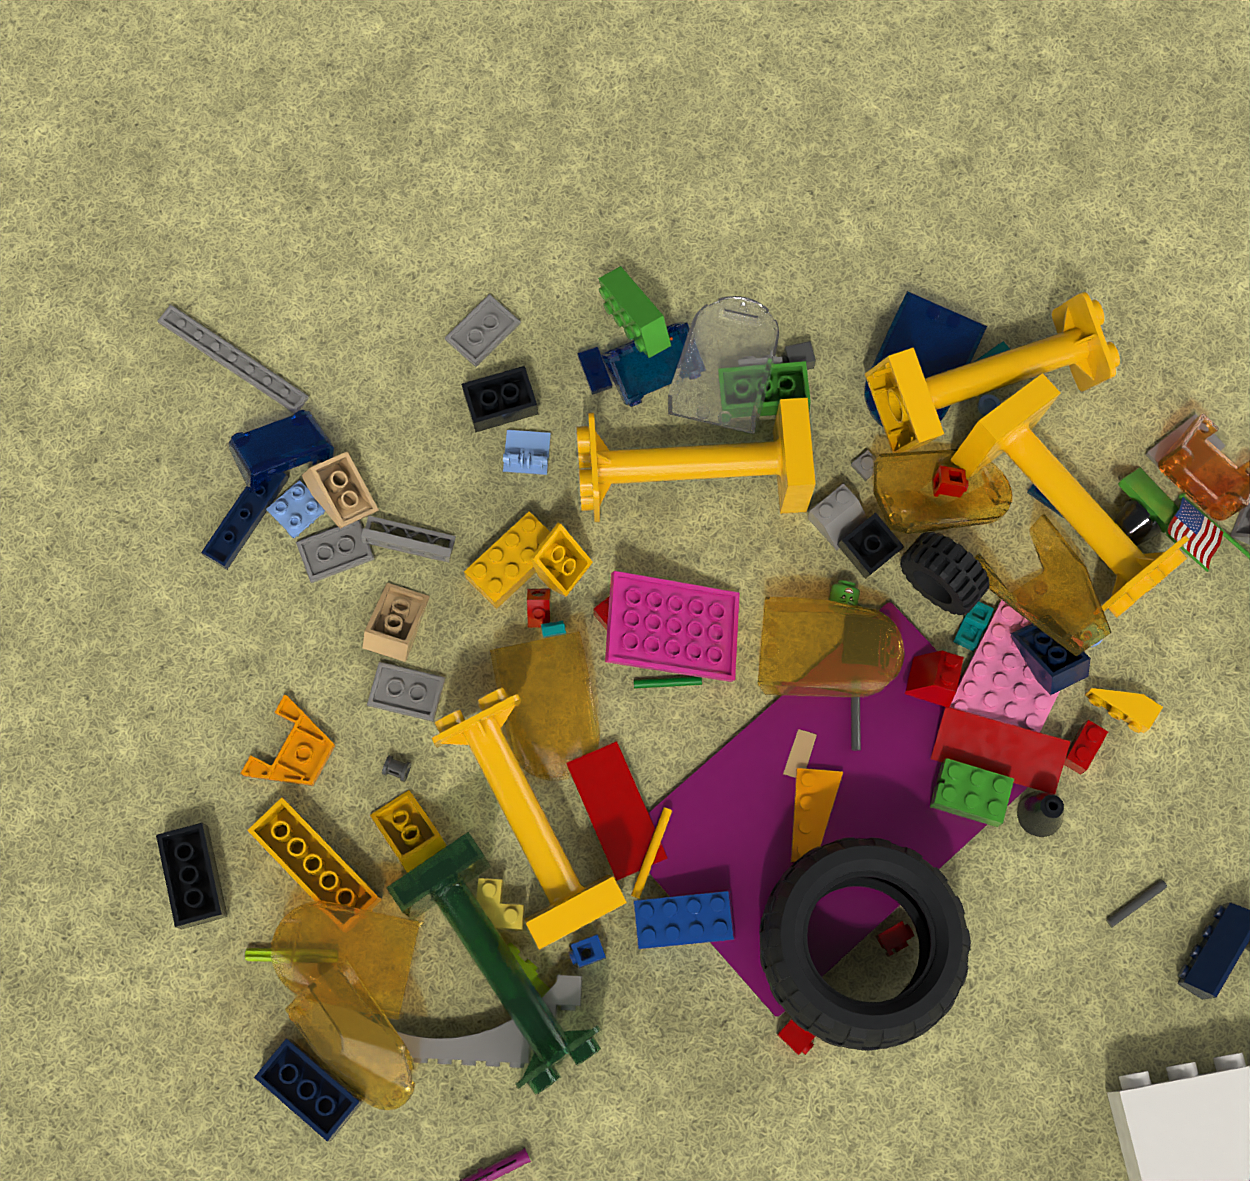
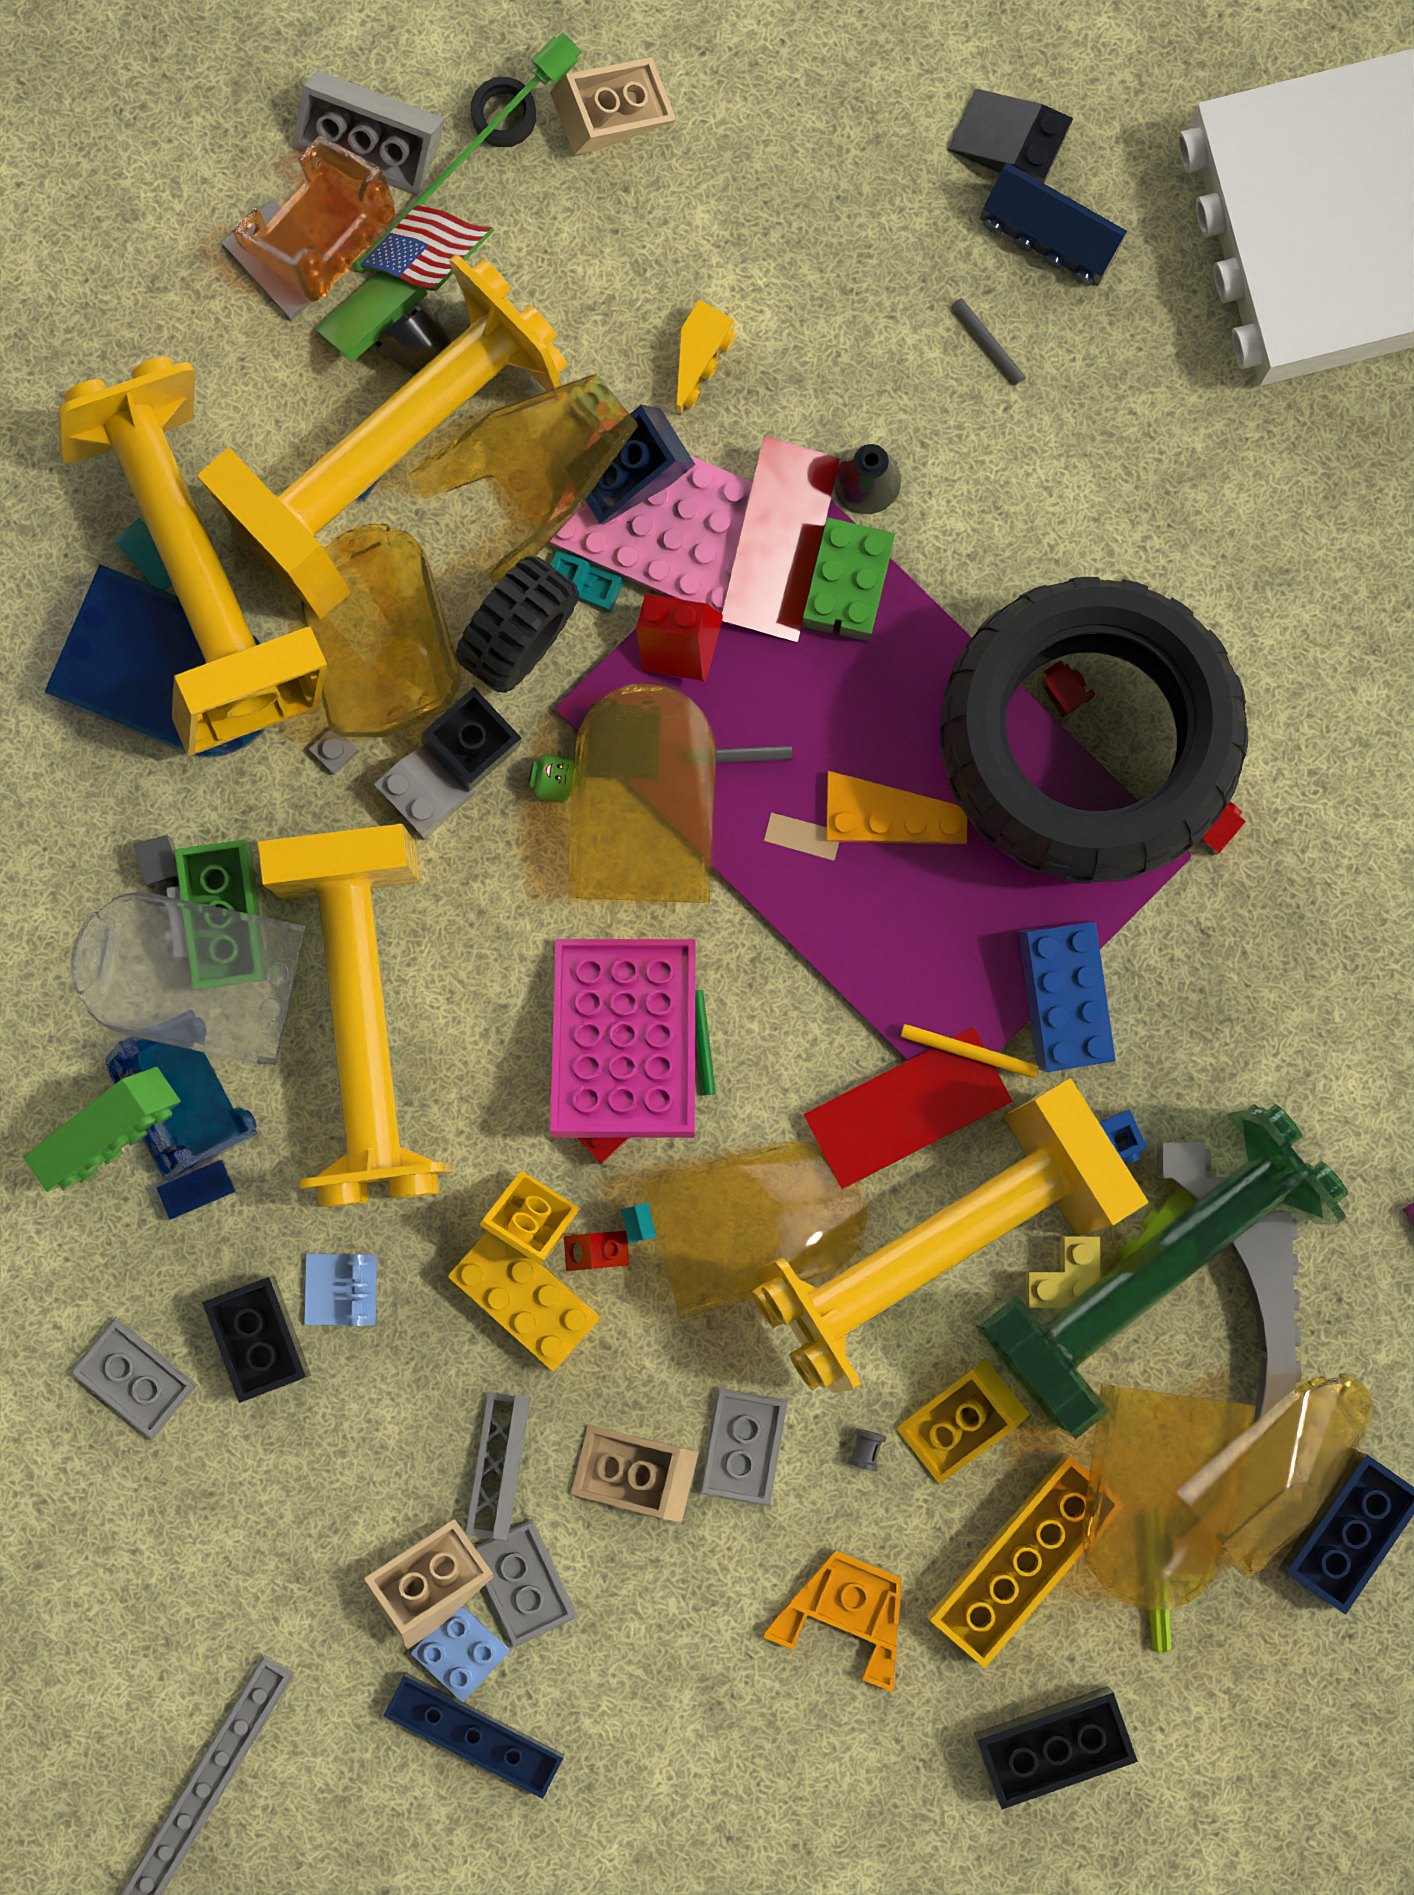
camera: 95 degrees left, 10 degrees up
(279, 448) = (362, 1689): clear blue windscreen -> none
(949, 482) = (360, 619): red brick -> none
(987, 404) = (229, 559): light blue tile -> none
(1085, 747) = (764, 413): red brick -> none

